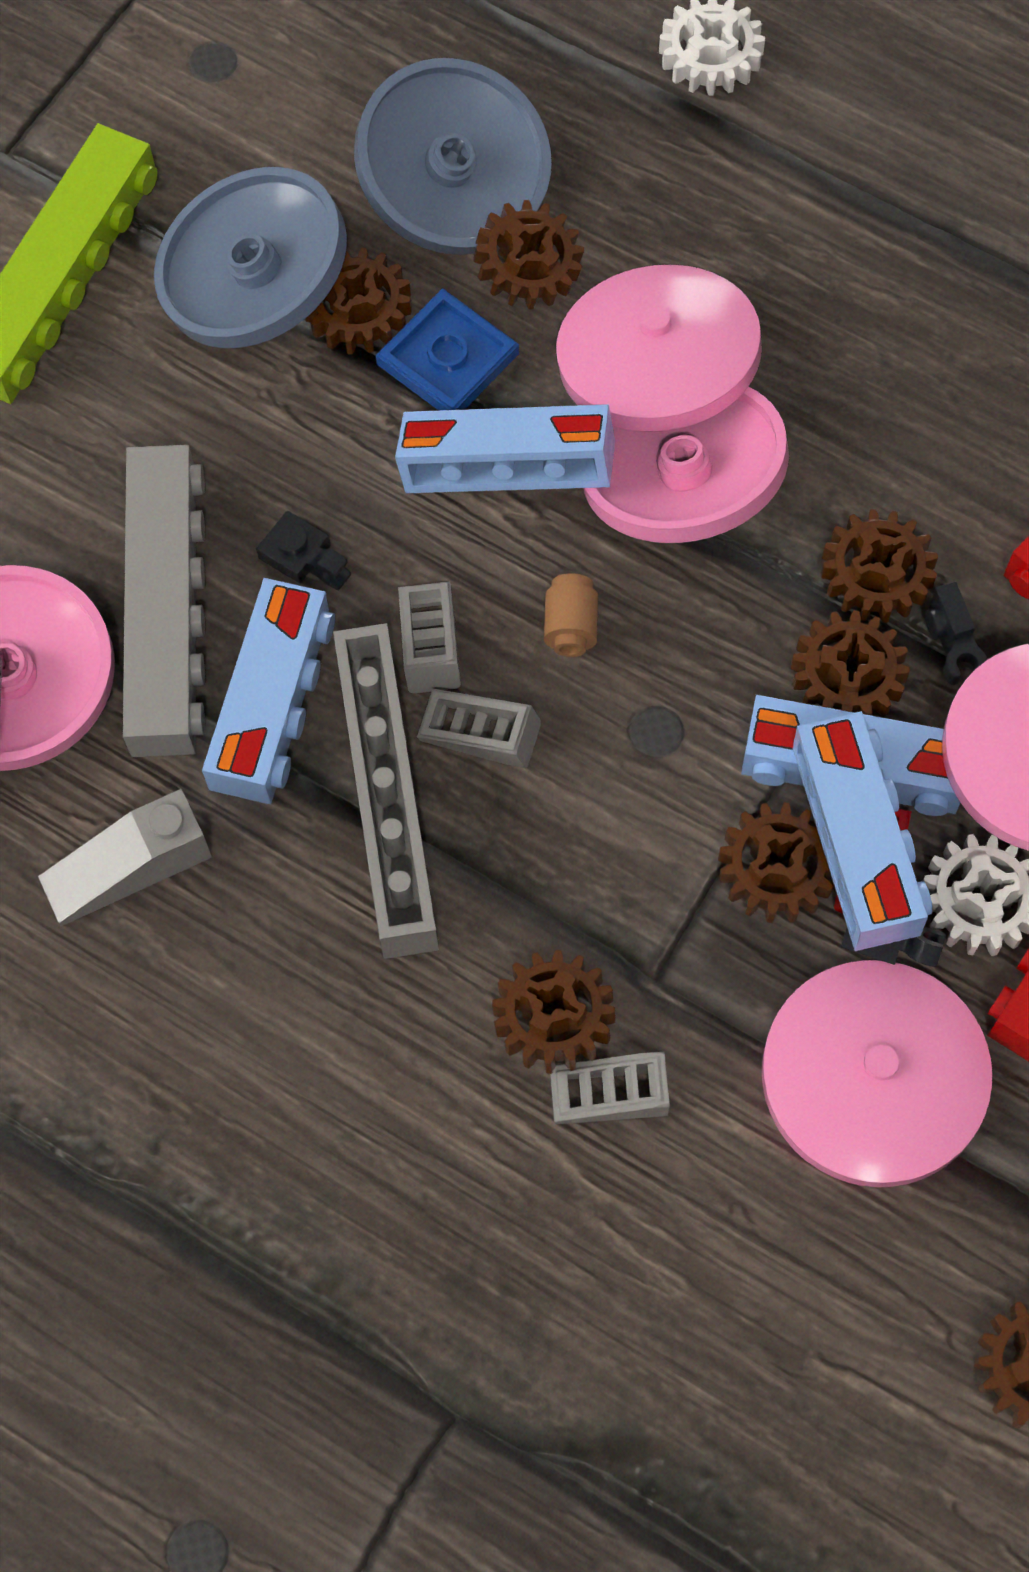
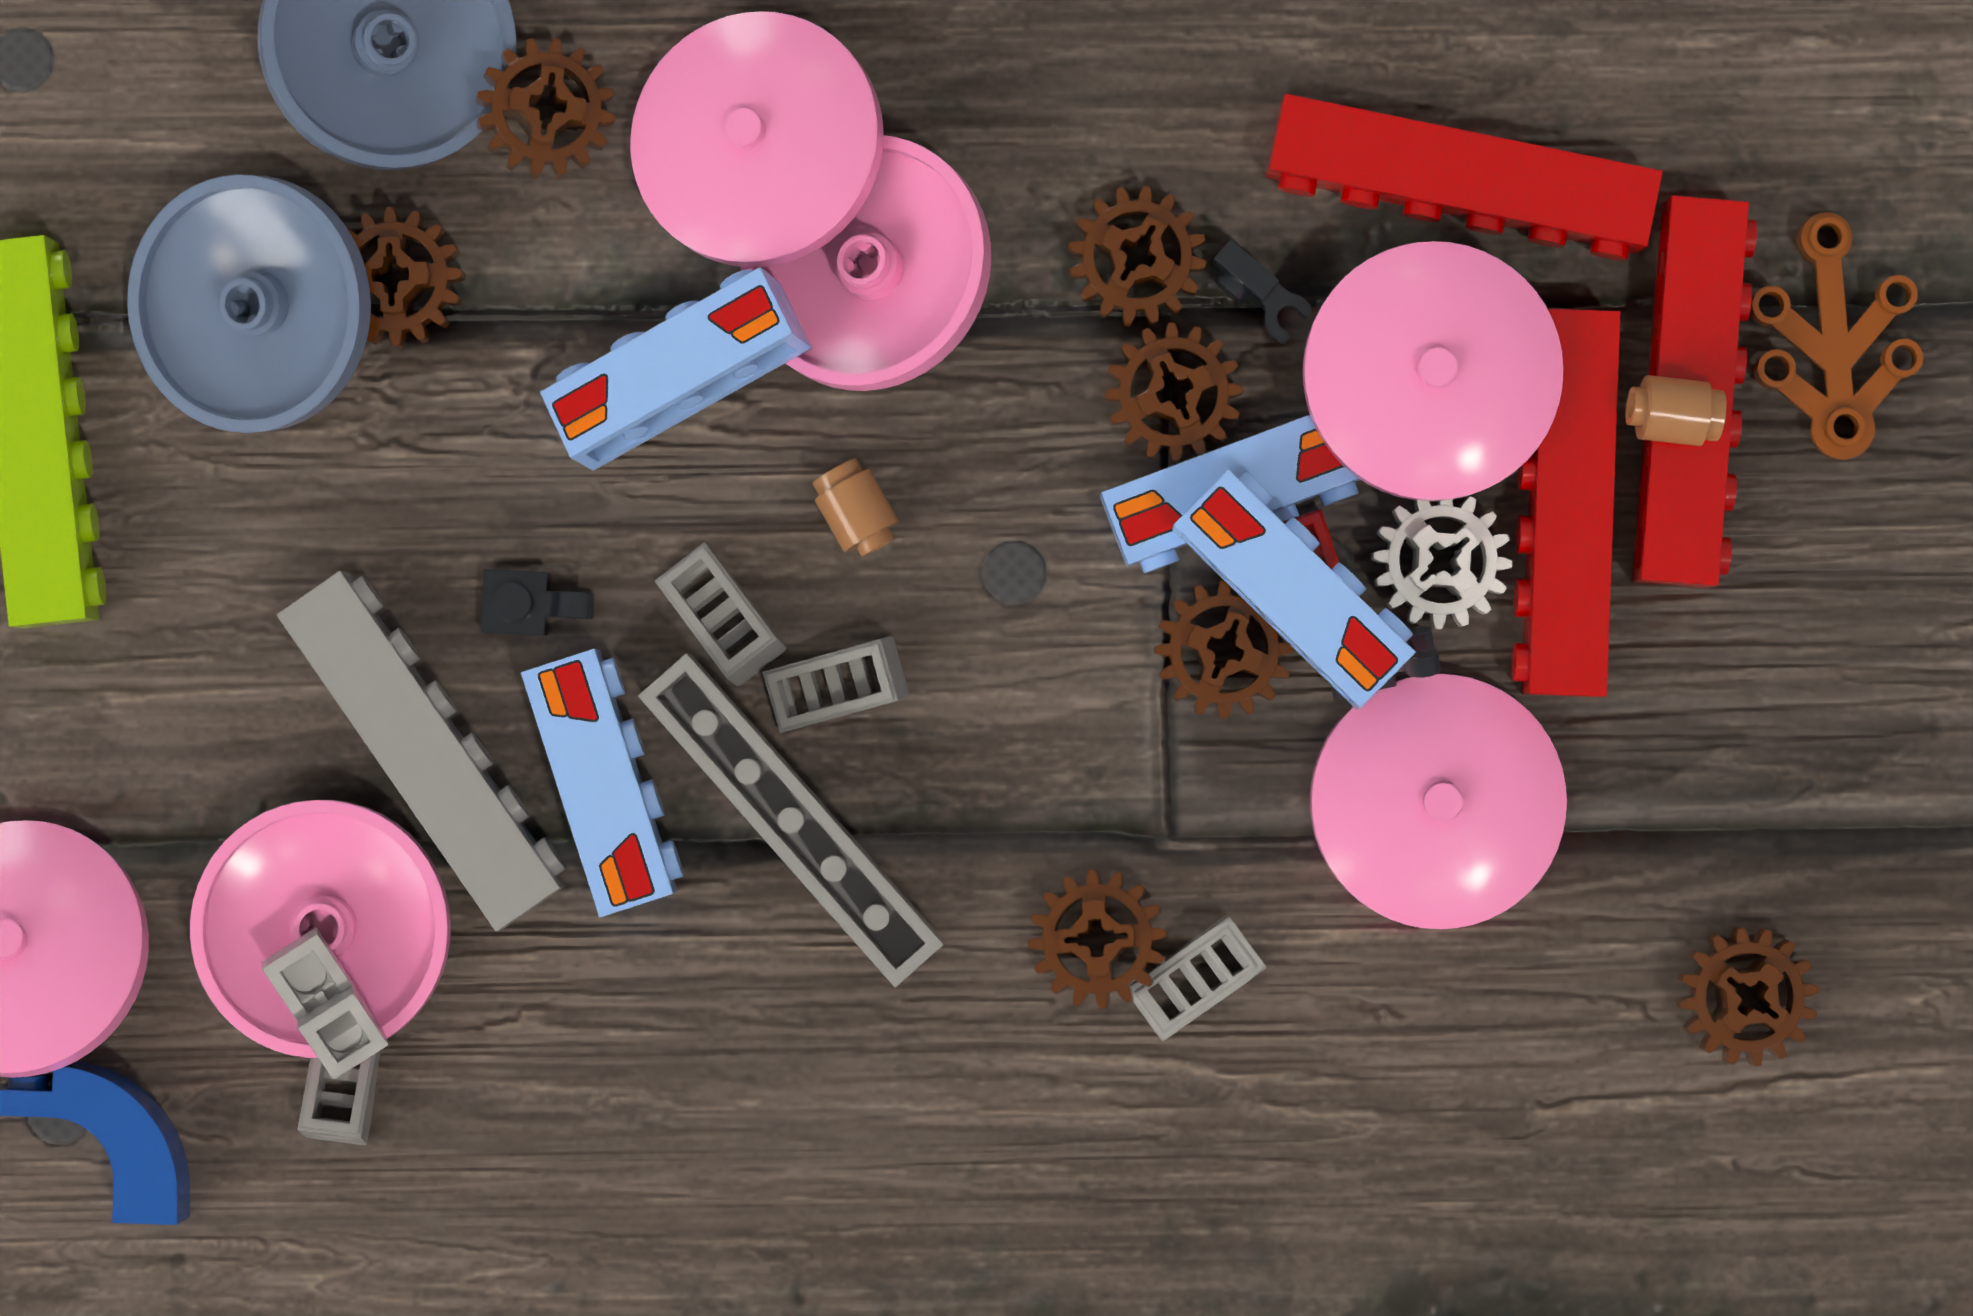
camera: 35 degrees left, 20 degrees up
(126, 858) = (577, 1045): light grey slope -> none
(447, 353) = (532, 280): blue plate -> none

